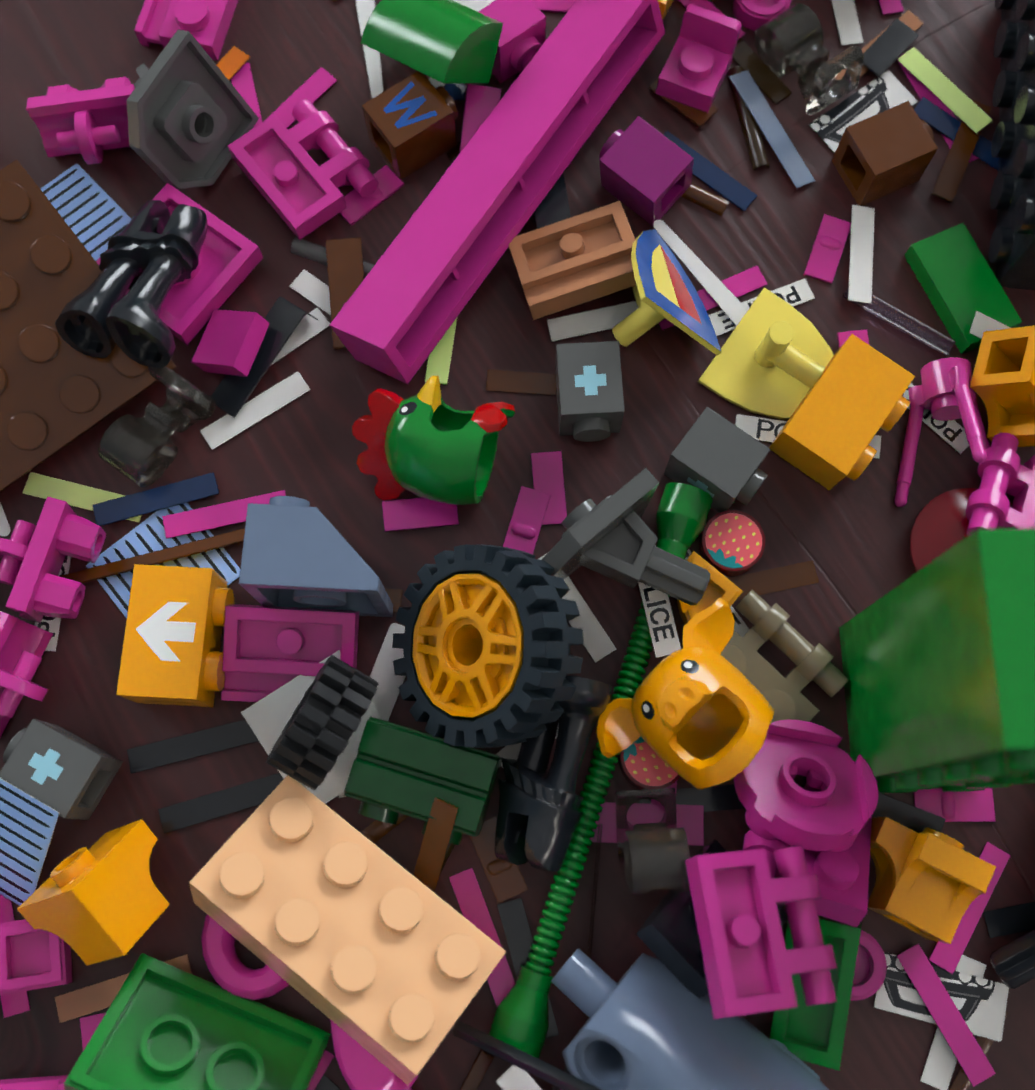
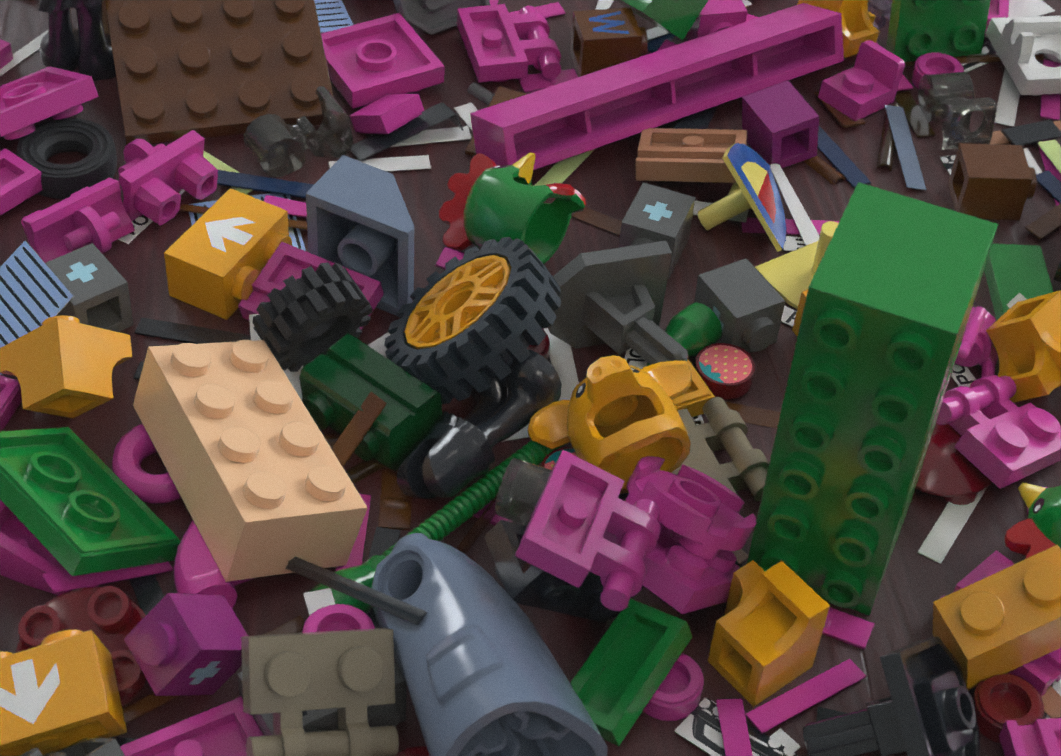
camera: 20 degrees right, 30 degrees down
(148, 260) = (329, 39): black piece -> none

